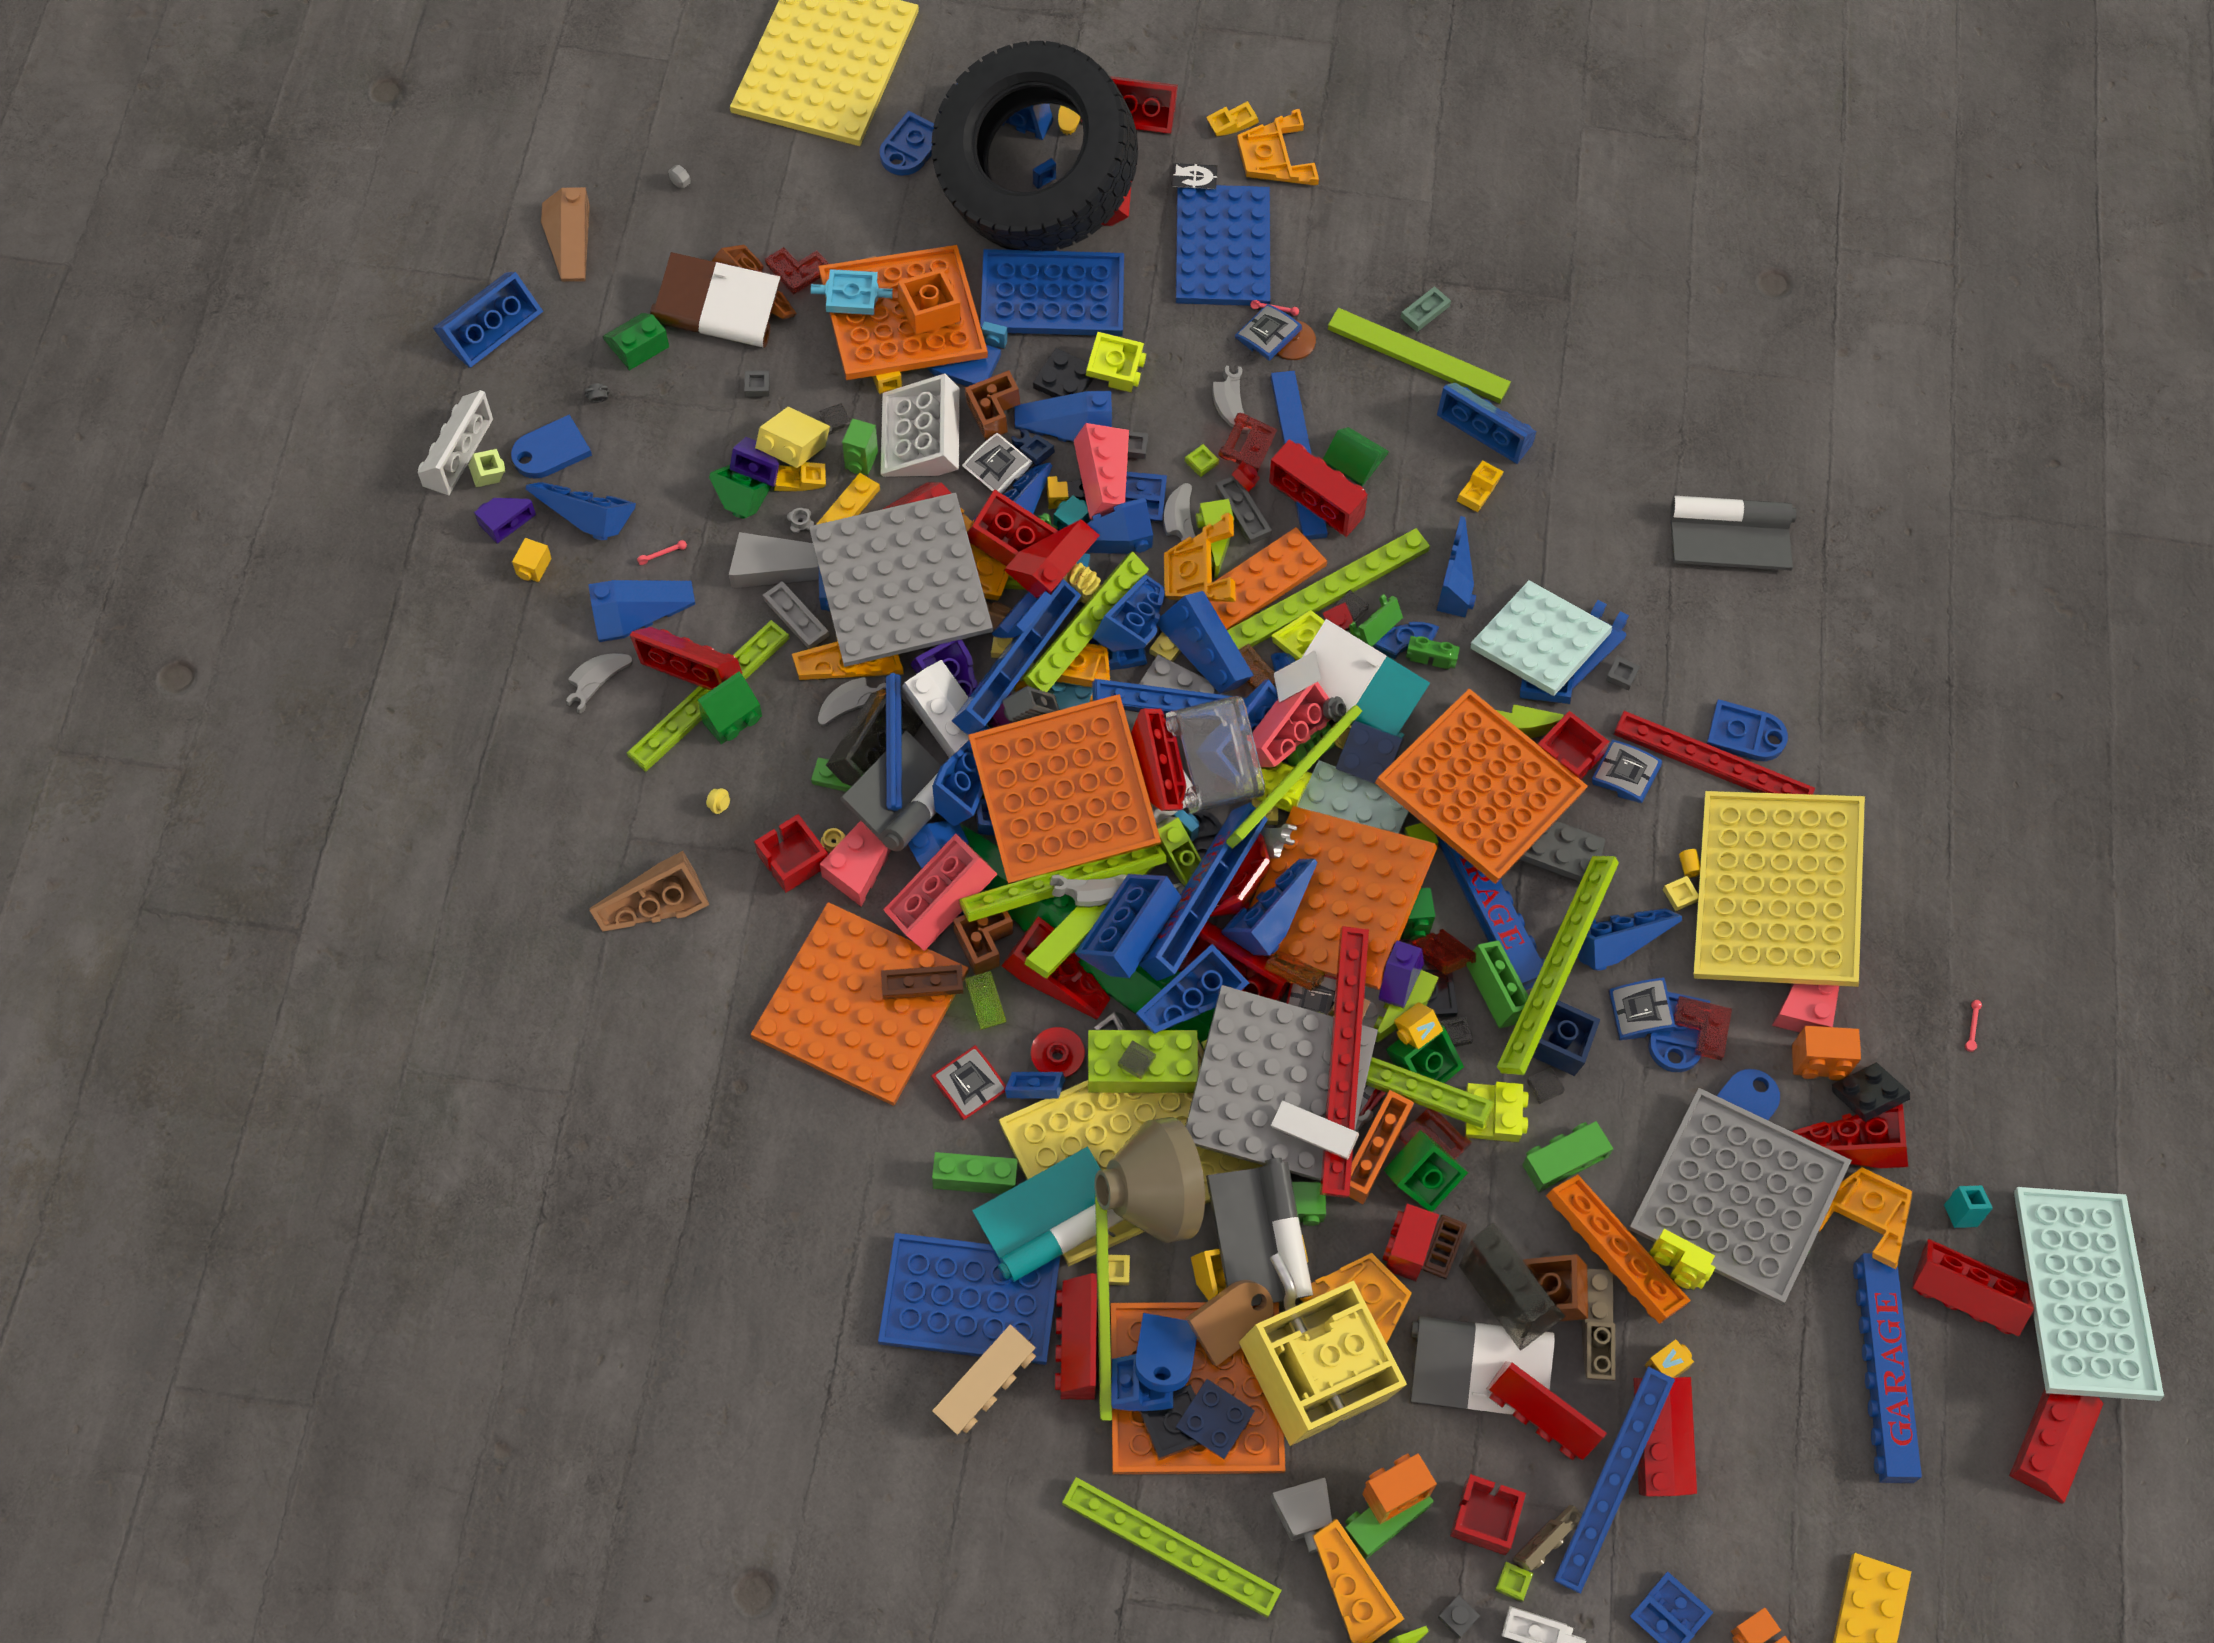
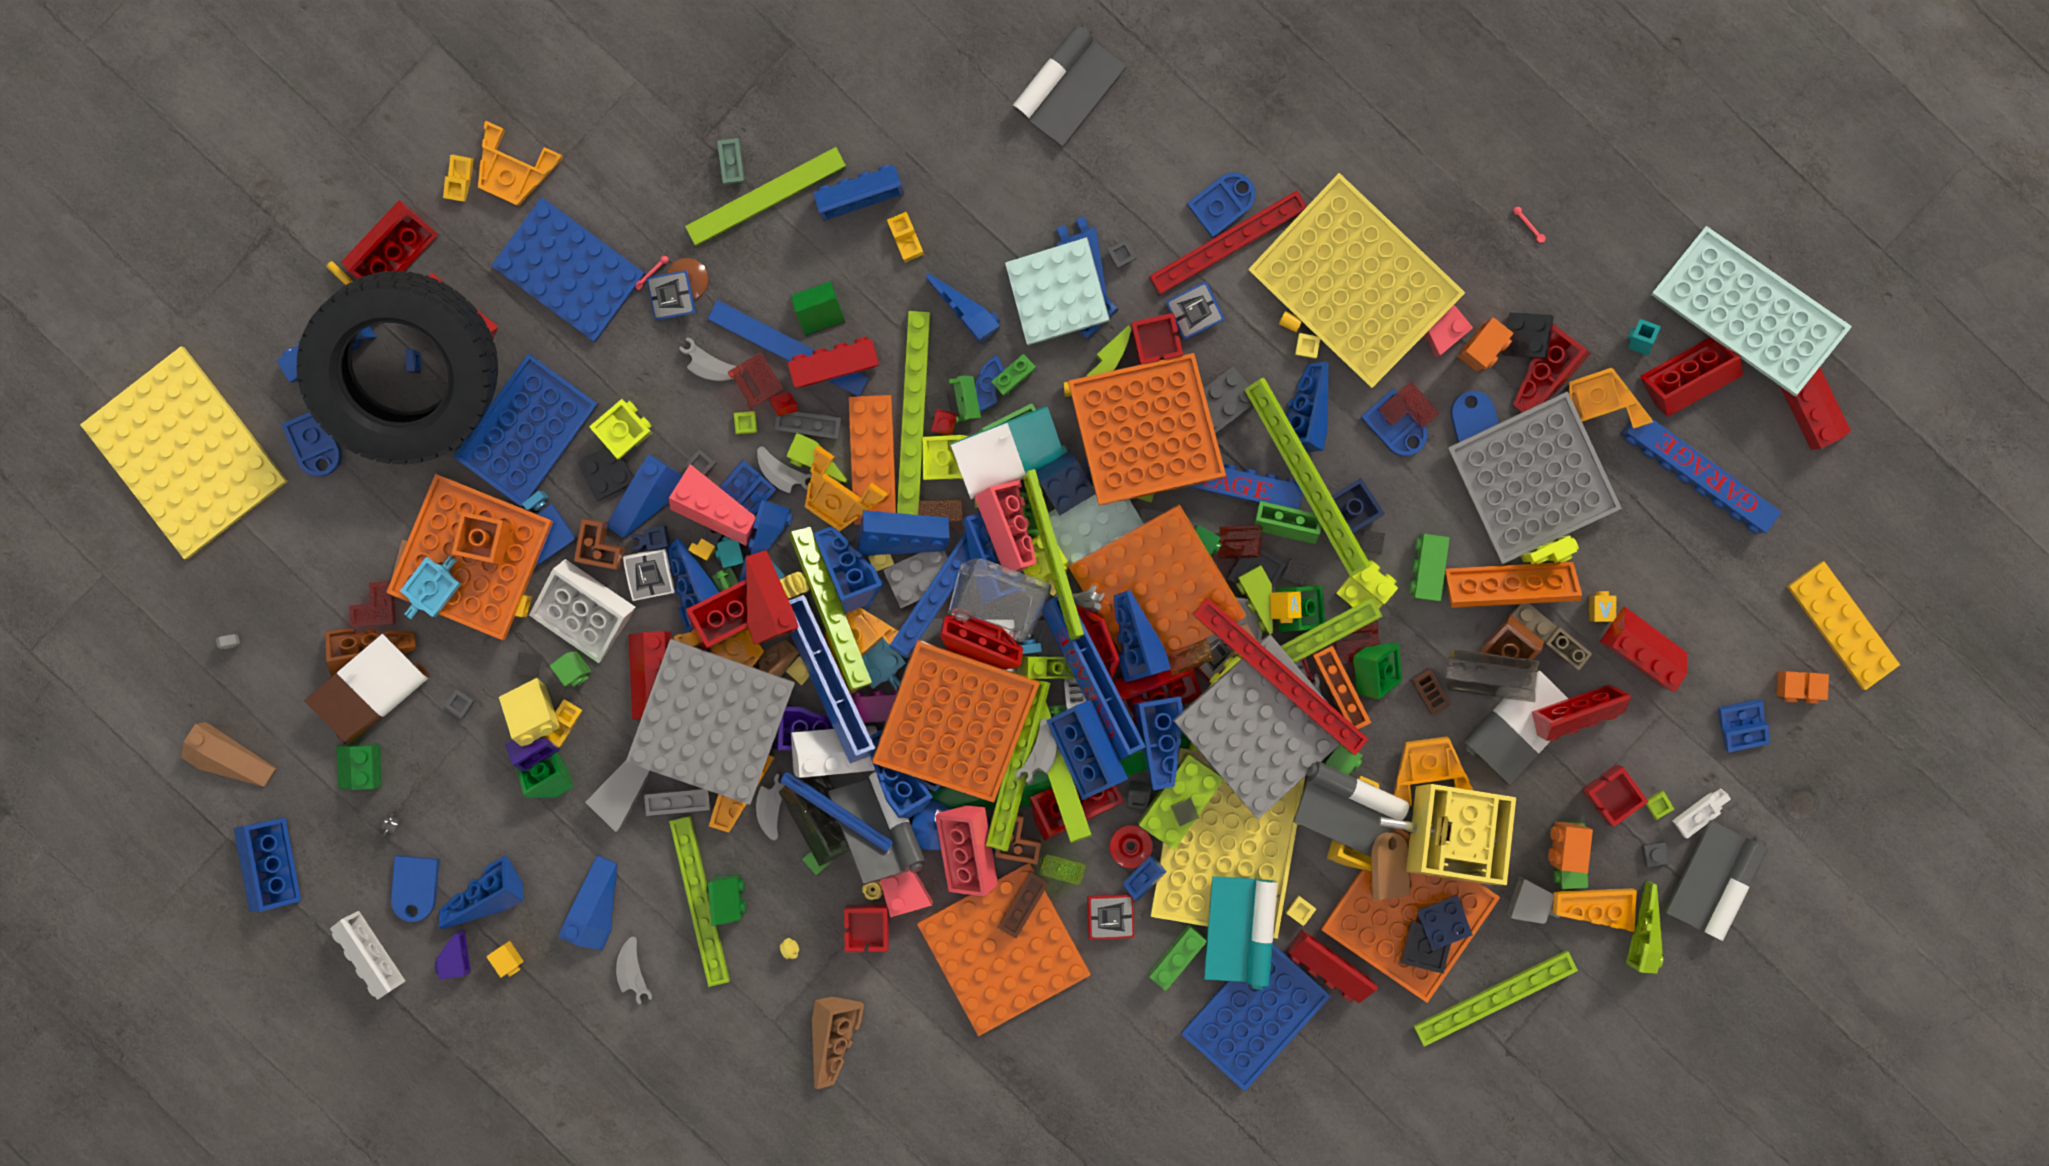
camera: 50 degrees left, 25 degrees up
(486, 468) = (405, 945): yellowish green brick -> none
(643, 559) = (562, 843): coral hinge -> none
(683, 657) = (664, 904): red slope -> none
(800, 514) = (594, 750): light grey plate -> none
(852, 500) = (610, 704): yellow plate -> none
(984, 1379) = (1319, 1045): tan brick -> none
(1022, 615) = (796, 653): blue slope -> none
(1028, 704) = (877, 700): dark grey brick -> none
(1103, 1312) = (1324, 940): lime tile -> none
(1130, 1393) = (1390, 951): blue slope -> none
(1156, 1181) = (1280, 866): dark tan cone -> none
(1164, 1348) = (1380, 923): blue tile -> none
(1194, 175) = (492, 246): sticker -> none
(1281, 660) = (949, 487): blue tile -> none
(1297, 676) = (978, 495): white sticker -> none
(1315, 1130) = (1314, 732): white tile -> none
(1334, 708) = (1017, 485): dark grey plate -> none
(1401, 974) = (1246, 593): dark purple slope -> none
(1412, 1238) = (1418, 715): red piece -> none
(1547, 1539) = (1651, 767): dark tan hinge -> none
(1614, 1479) = (1653, 704): blue tile -> none
(1641, 1008) = (1367, 438): slope -> none

